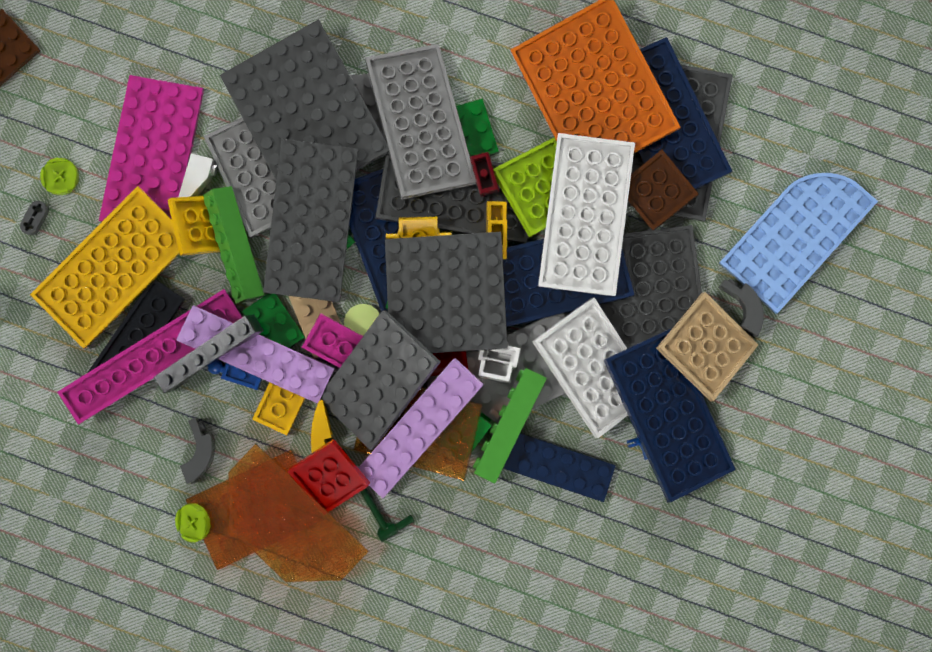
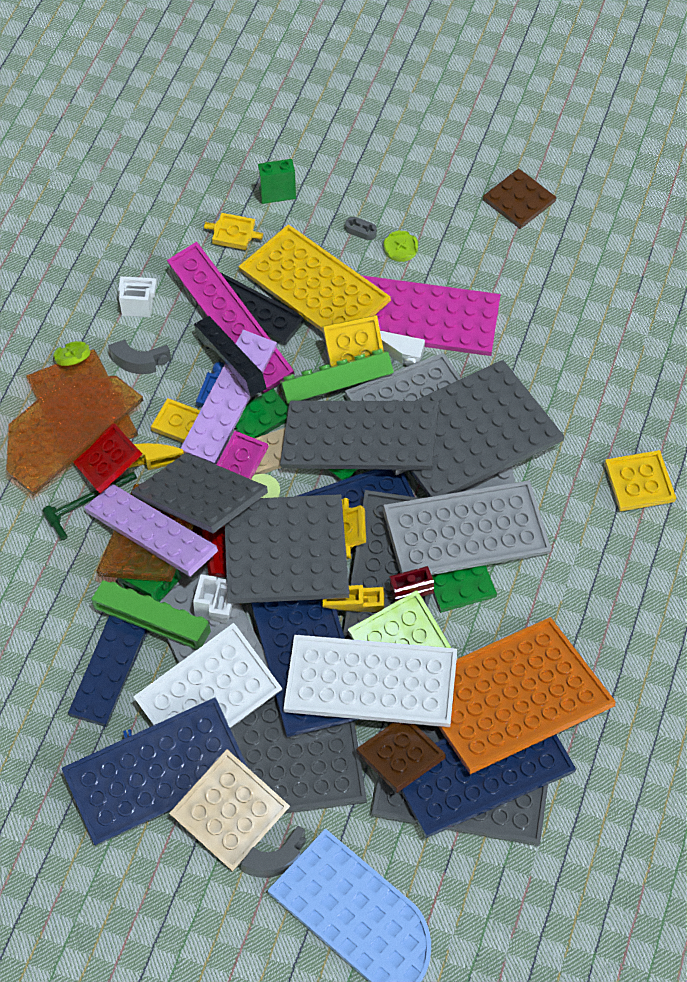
camera: 85 degrees right, 25 degrees down
(33, 354) = (233, 231): none -> yellow plate
(119, 456) = (136, 296): none -> white plate

